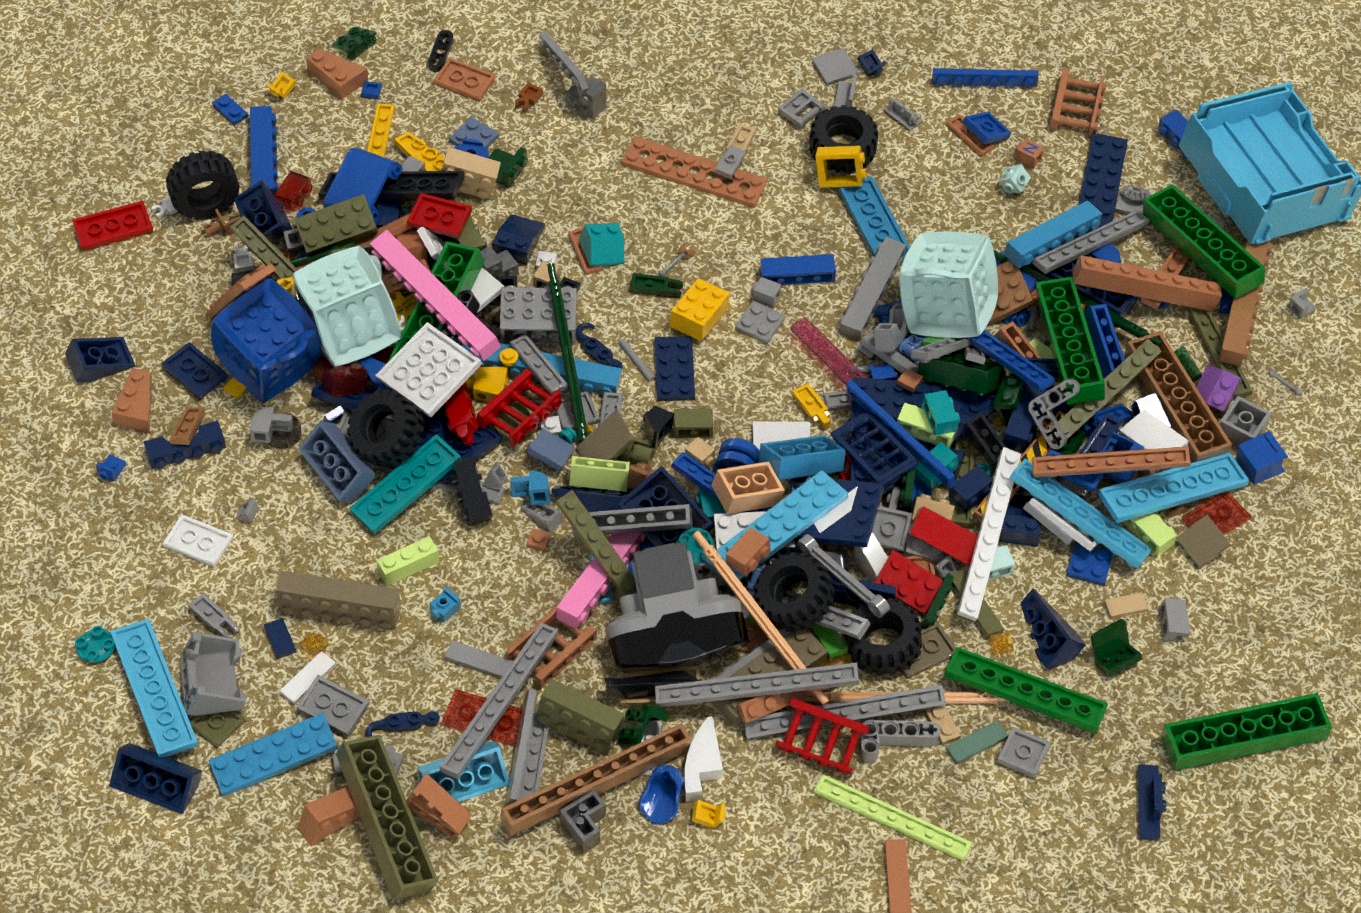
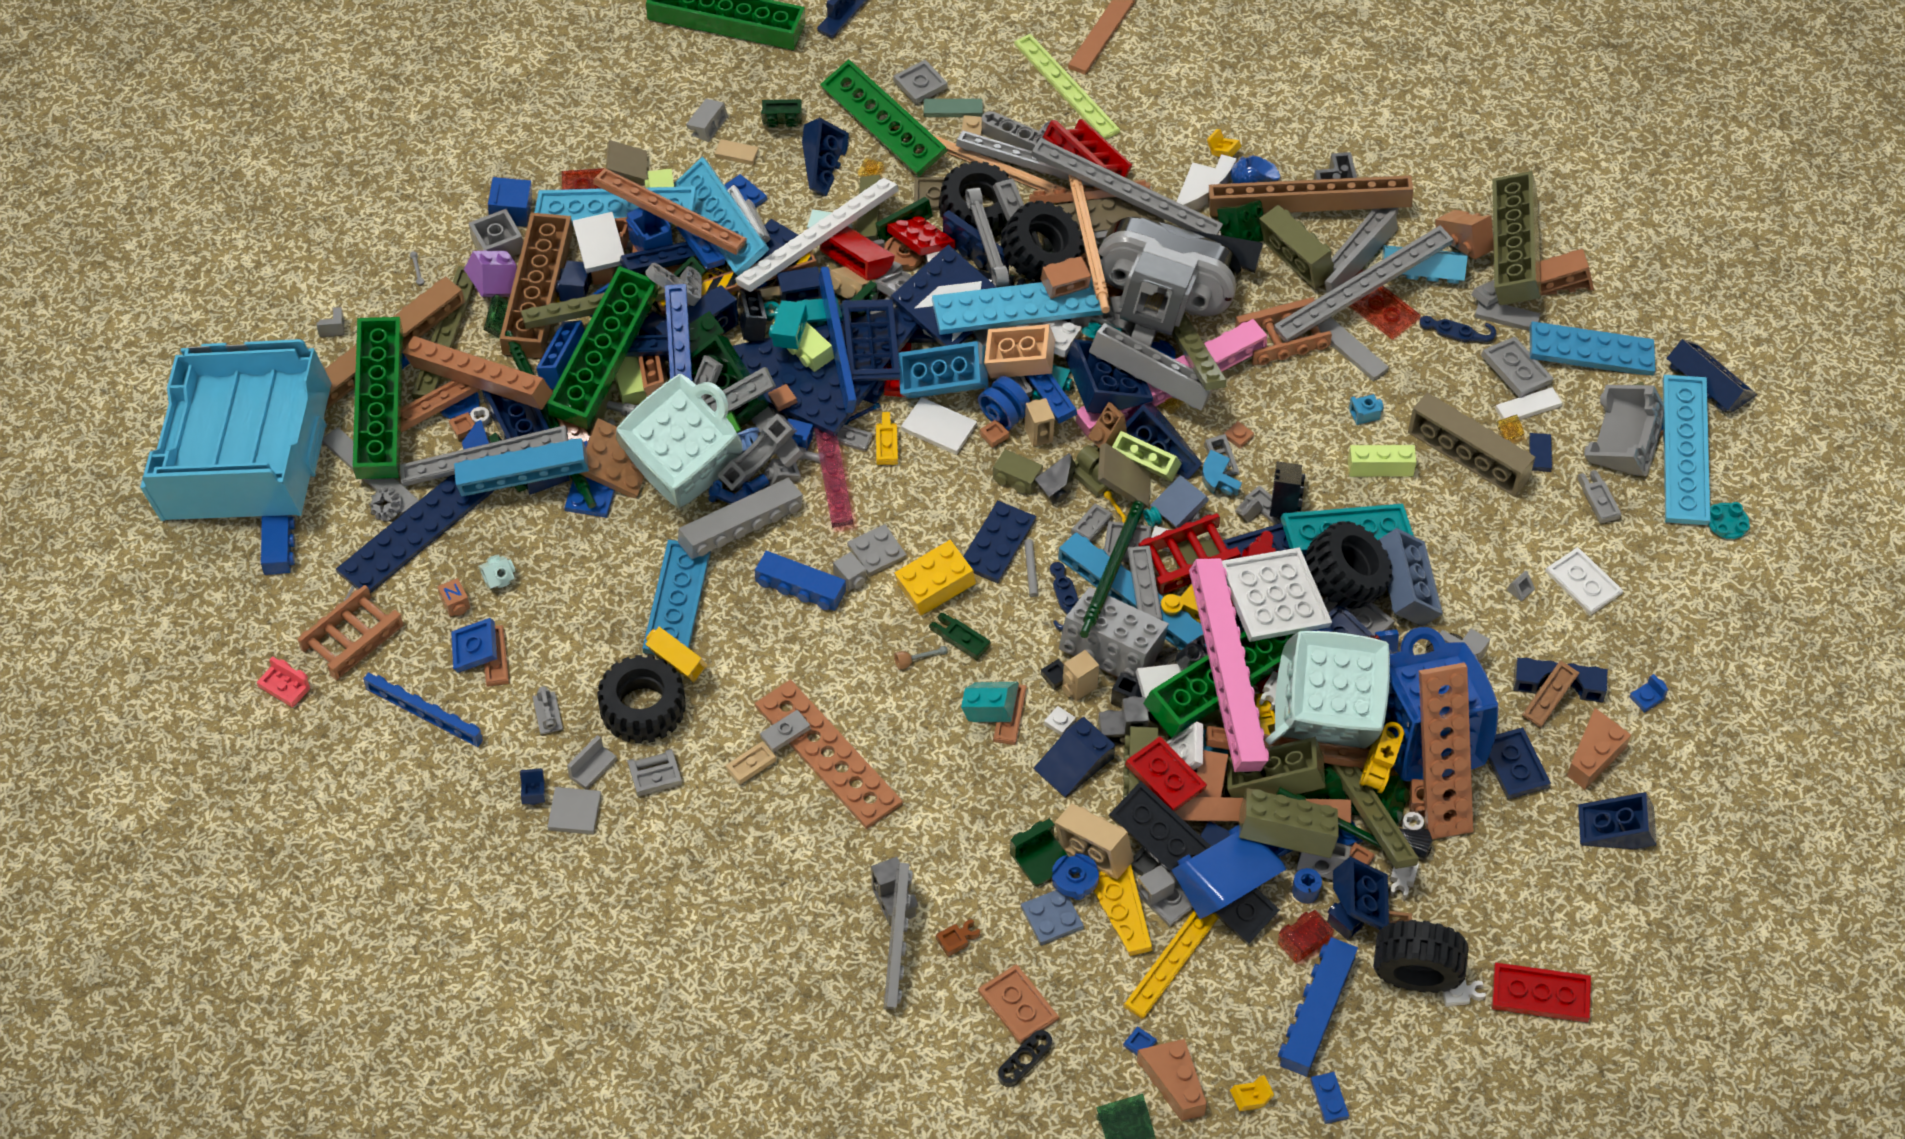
camera: 150 degrees left, 0 degrees up
(1090, 55) = (284, 682): none -> coral bracket

